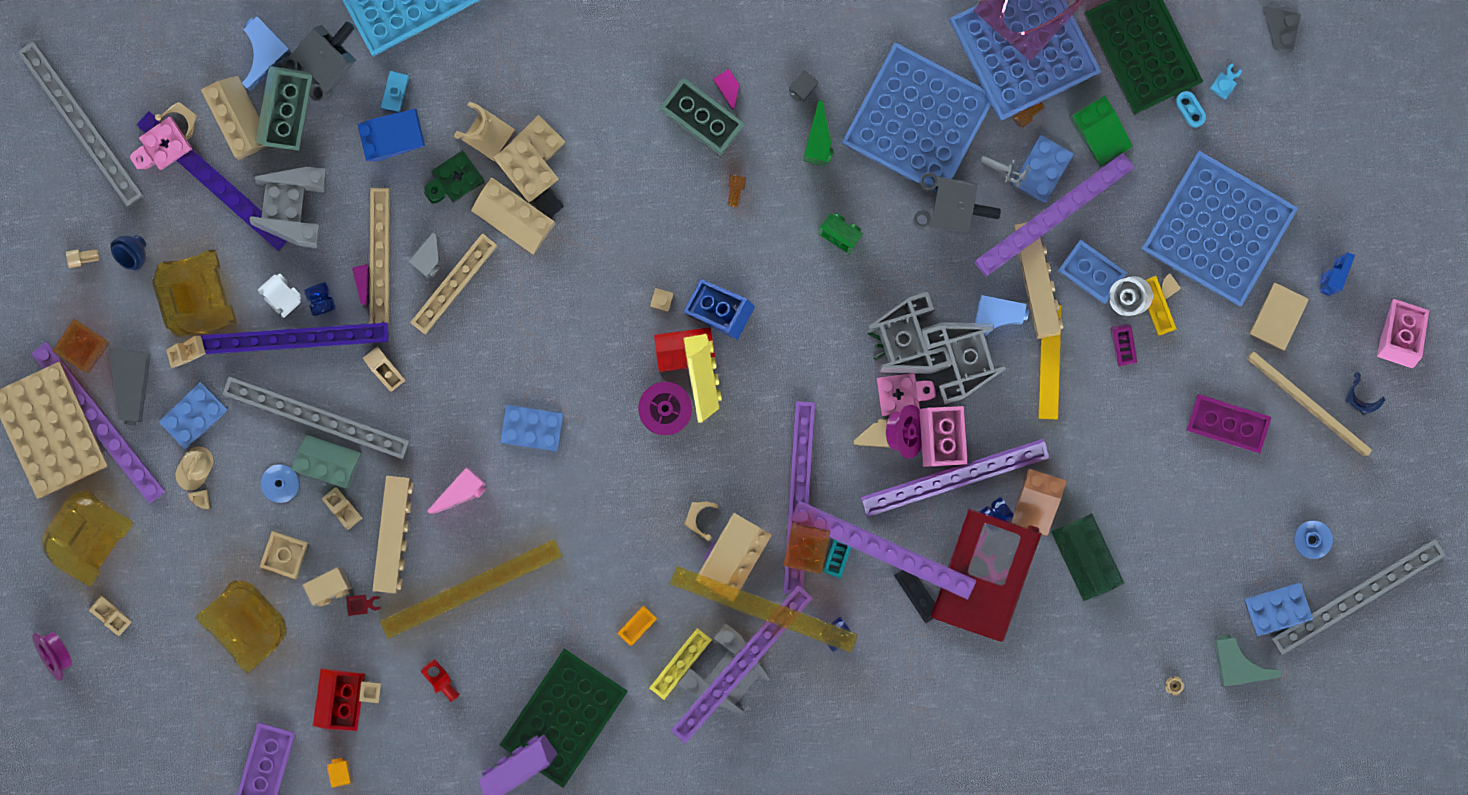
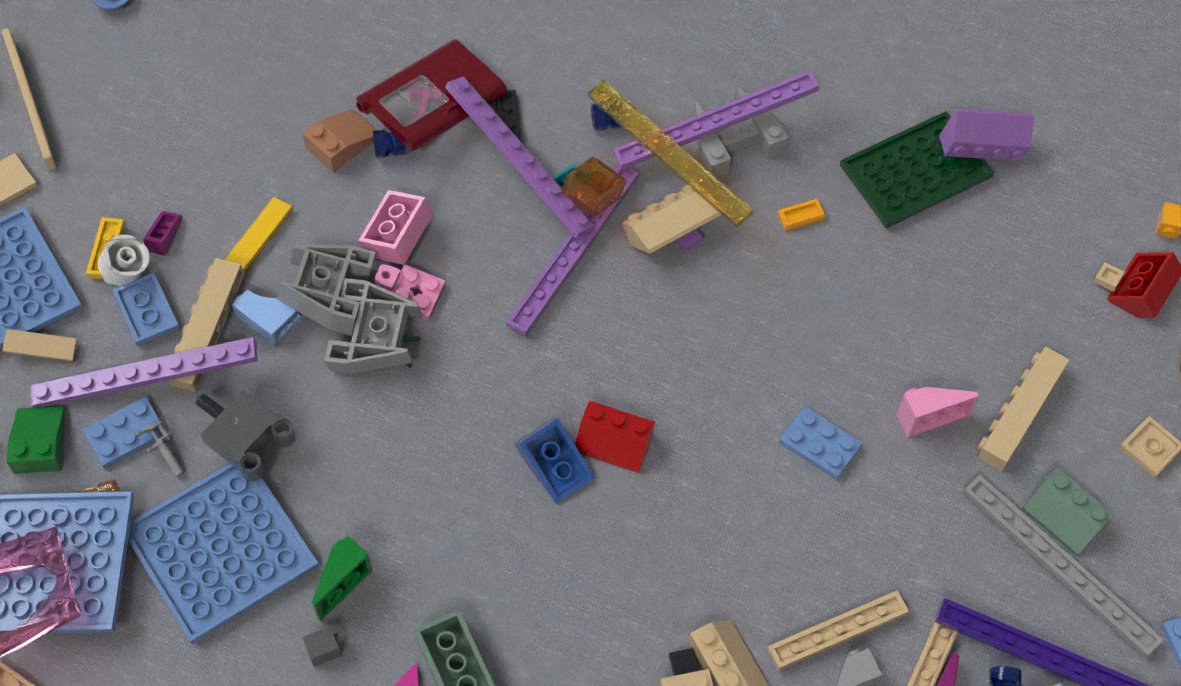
camera: 150 degrees left, 25 degrees down
(289, 486) = (1123, 527): medium blue dish -> none
(328, 586) = (1118, 385): tan brick -> none
(342, 508) = (1067, 459): tan slope -> none
(359, 604) = (1086, 359): dark red plate -> none
(384, 369) = (961, 578): tan slope -> none
(441, 681) = (1030, 253): red bracket -> none
(471, 589) = (959, 320): clear yellow plate -> none
(651, 408) = (667, 387): magenta piece -> none
(661, 300) = (611, 501): tan plate -> none
(680, 663) = (774, 164): light yellow tile -> none
(691, 517) = (690, 282): tan helmet -> none
(702, 375) = (611, 389): light yellow slope -> none
(736, 184) = (461, 576): clear orange piece -> none
(840, 233) = (378, 463): green slope -> none
(874, 435) = (463, 264): tan slope -> none
(904, 431) = (432, 248): magenta piece -> none
(955, 477) = (435, 196): medium lavender plate -> none
(1087, 557) = (326, 69): clear green brick -> none
(1148, 200) = (39, 345): none -> tan tile
(1169, 286) = (79, 261): tan tile -> none
(1228, 423) = (115, 118): magenta plate -> none

